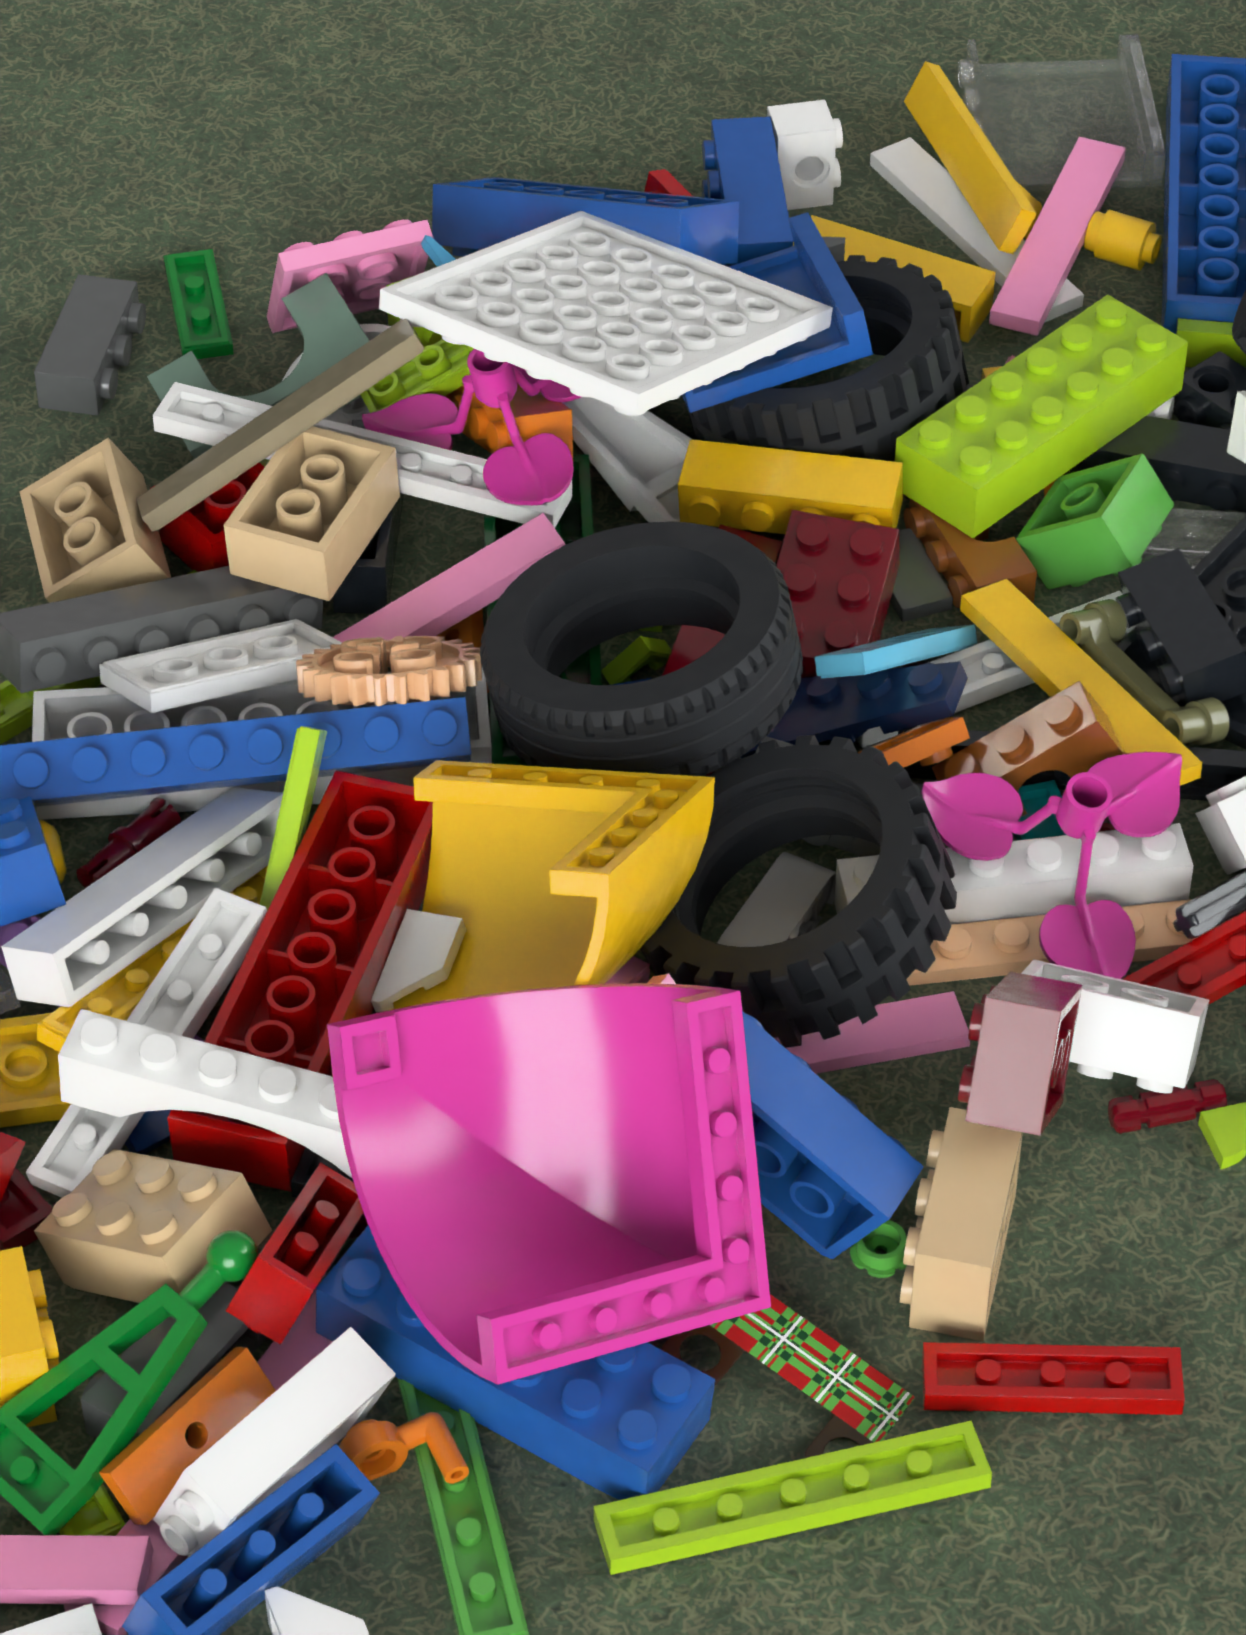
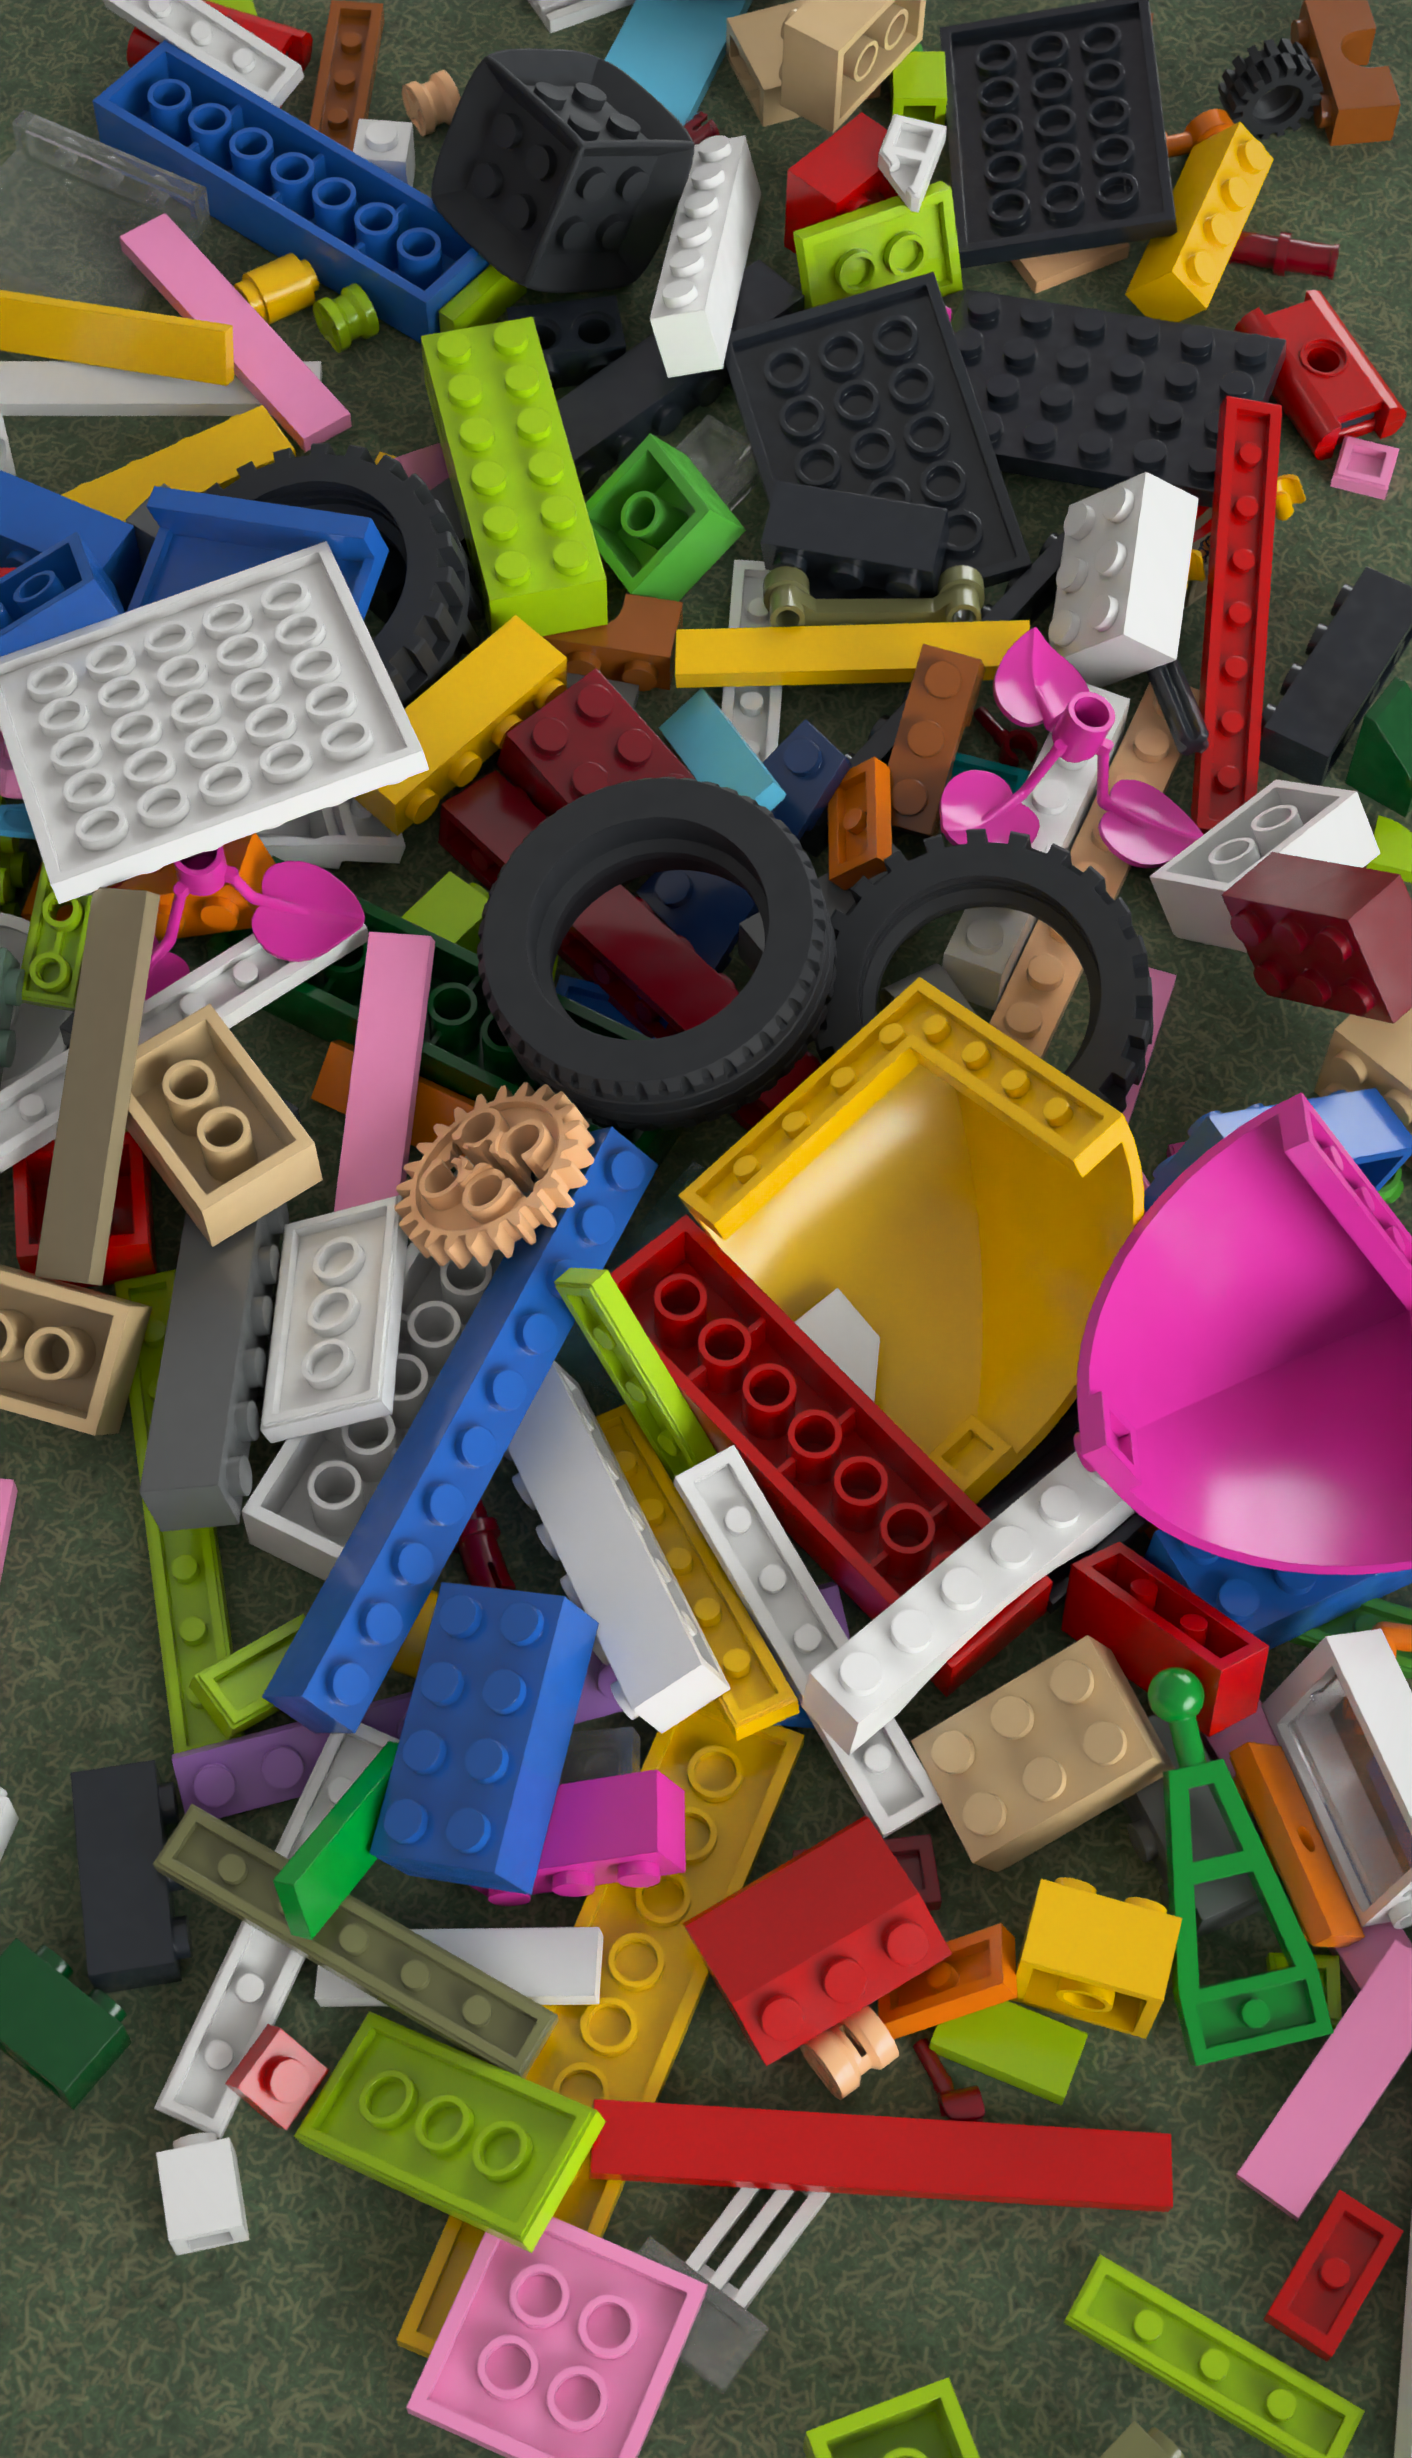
camera: 60 degrees left, 15 degrees up
(1136, 284) = (346, 317): none -> lime wheel

